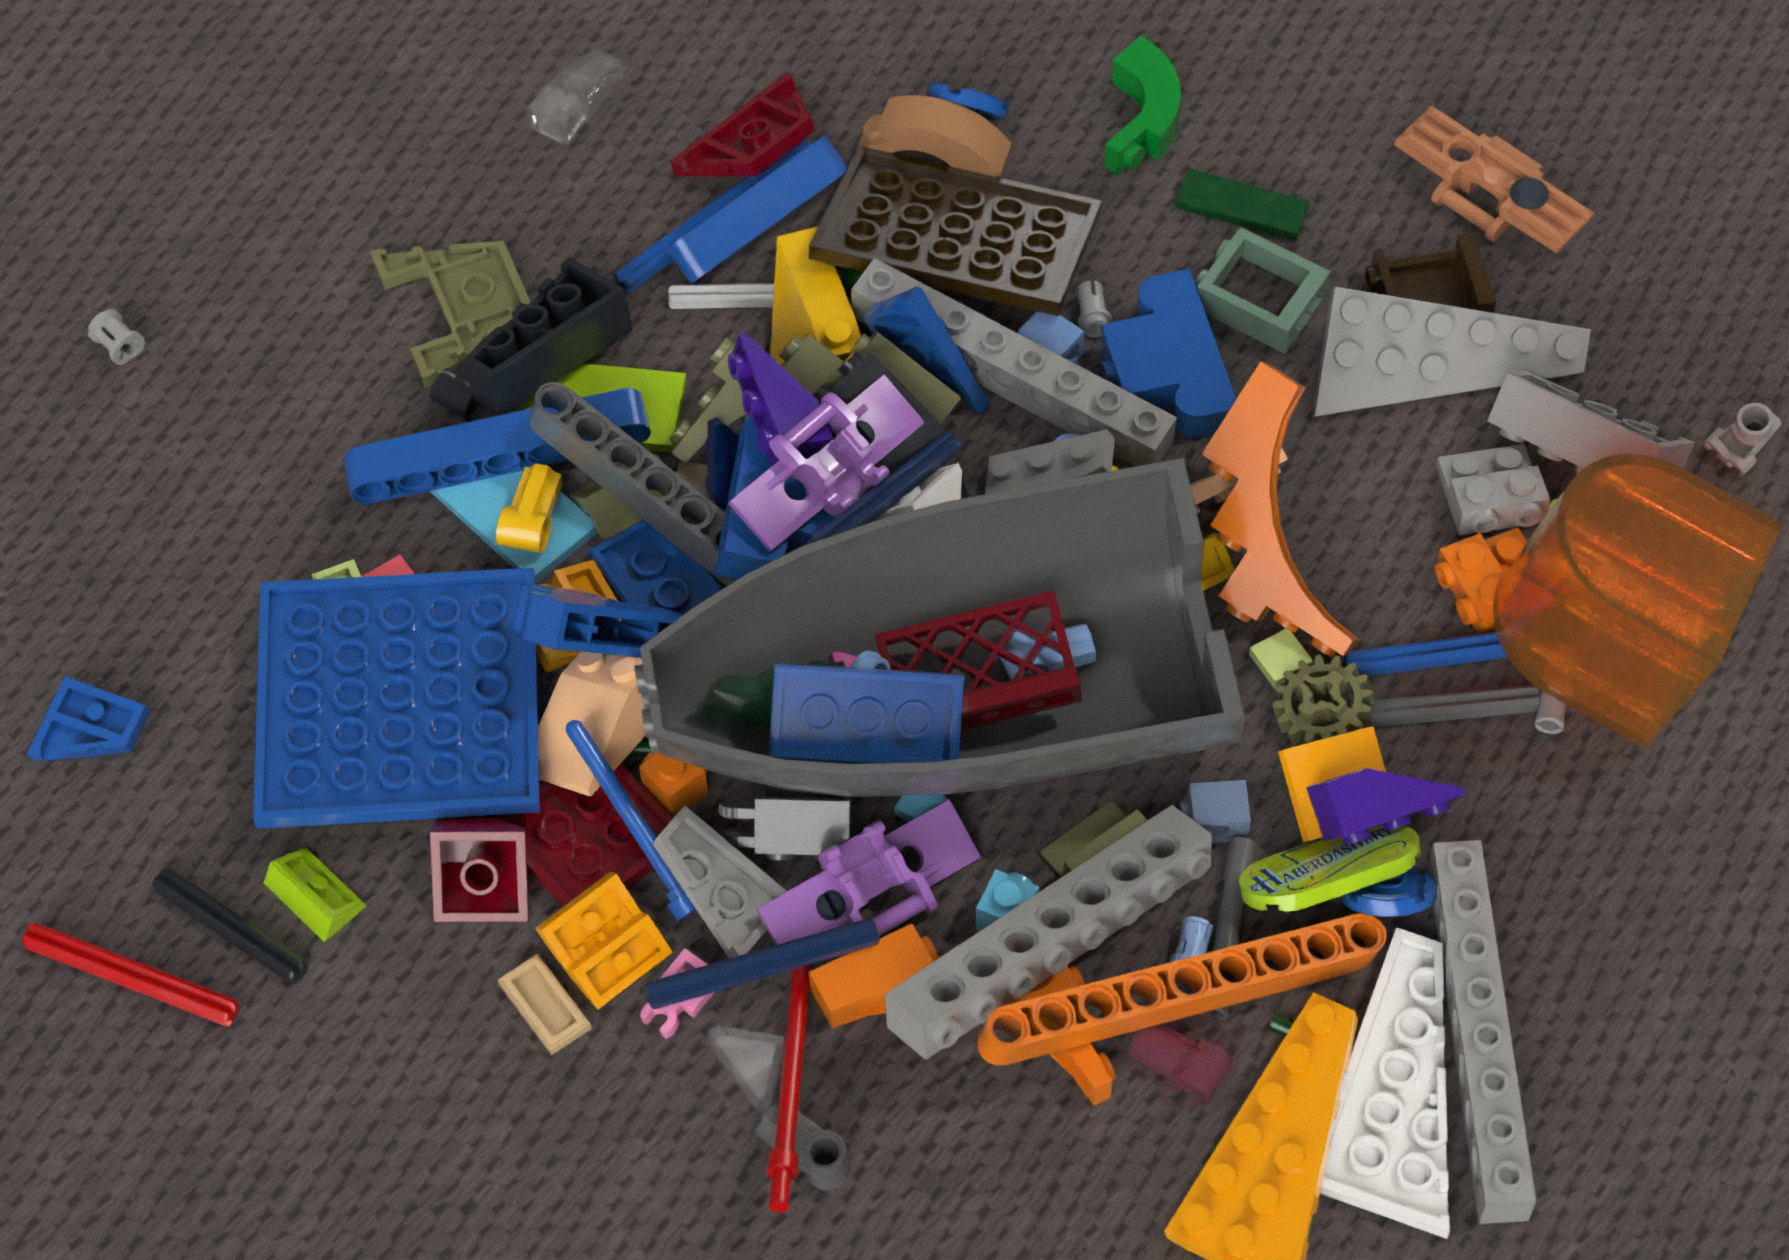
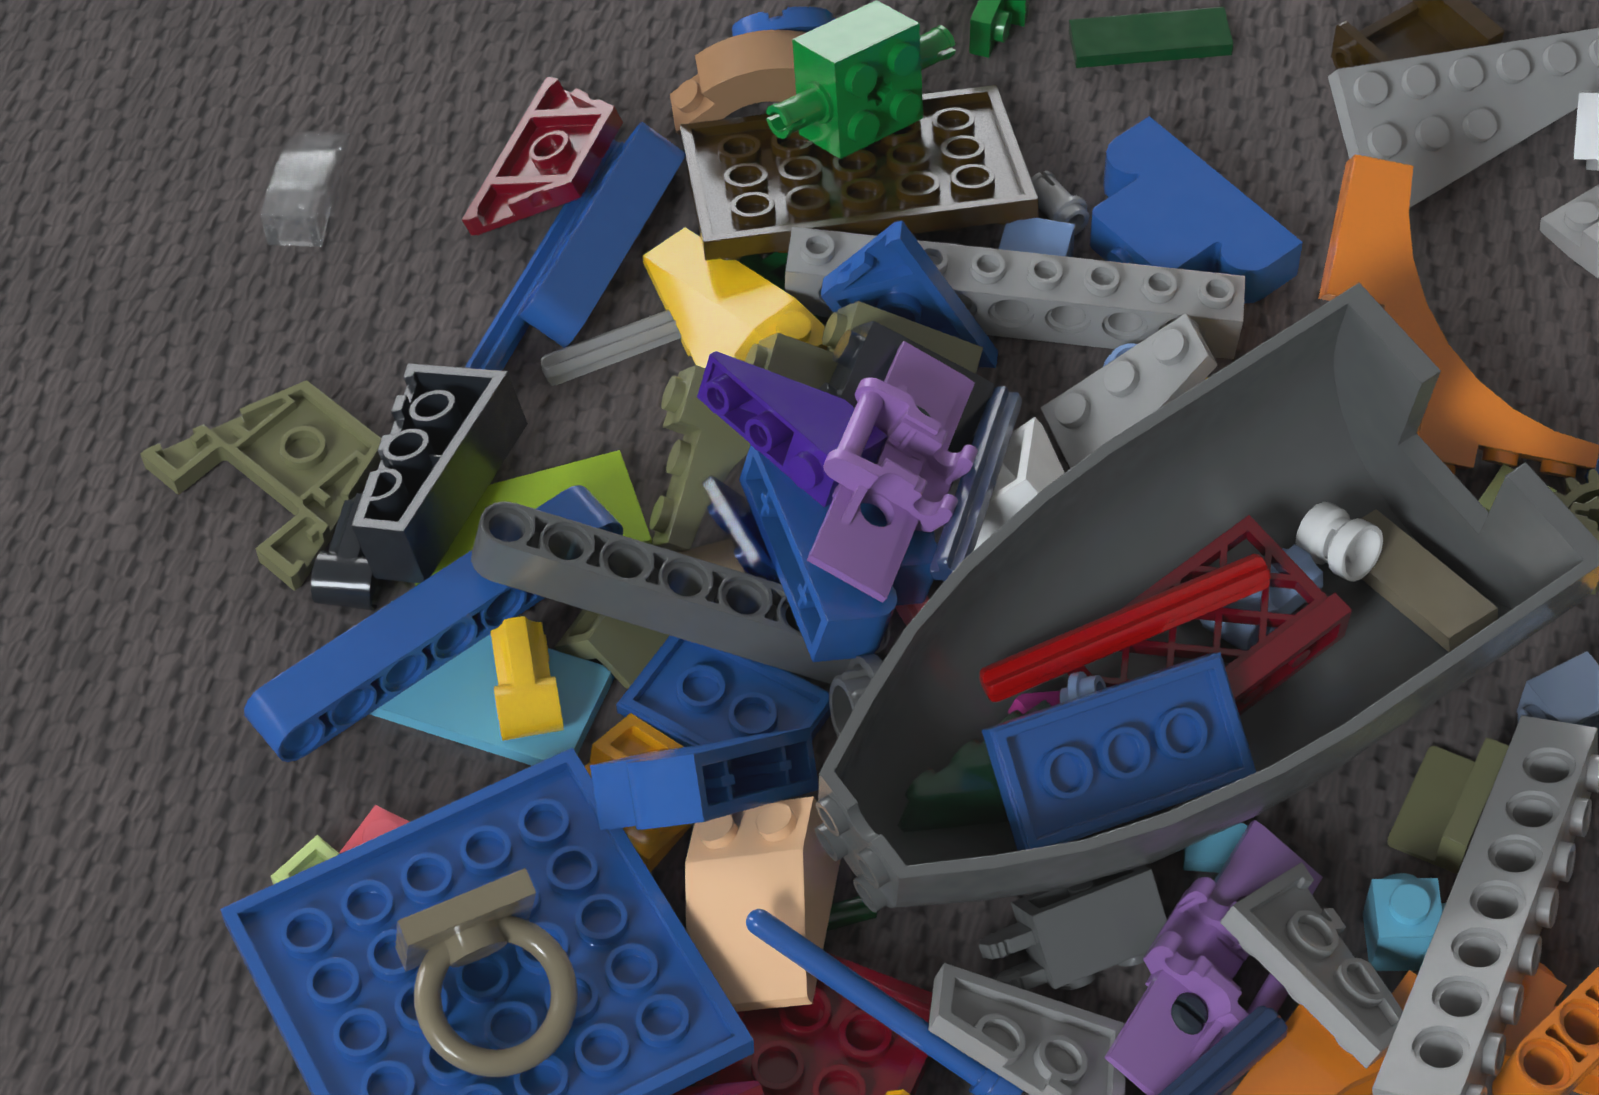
camera: 25 degrees left, 5 degrees down
(390, 659) = (465, 932): none -> dark tan tile
(673, 782) = (895, 940): orange brick -> none
(917, 898) = (1308, 957): none -> light grey wing
(924, 634) = (1124, 627): none -> red axle
(985, 163) = (859, 79): none -> green brick
(1112, 628) = (1343, 543): none -> white wheel
(1154, 674) = (1426, 588): none -> dark tan tile
(1248, 318) = (1240, 78): sand green window -> none

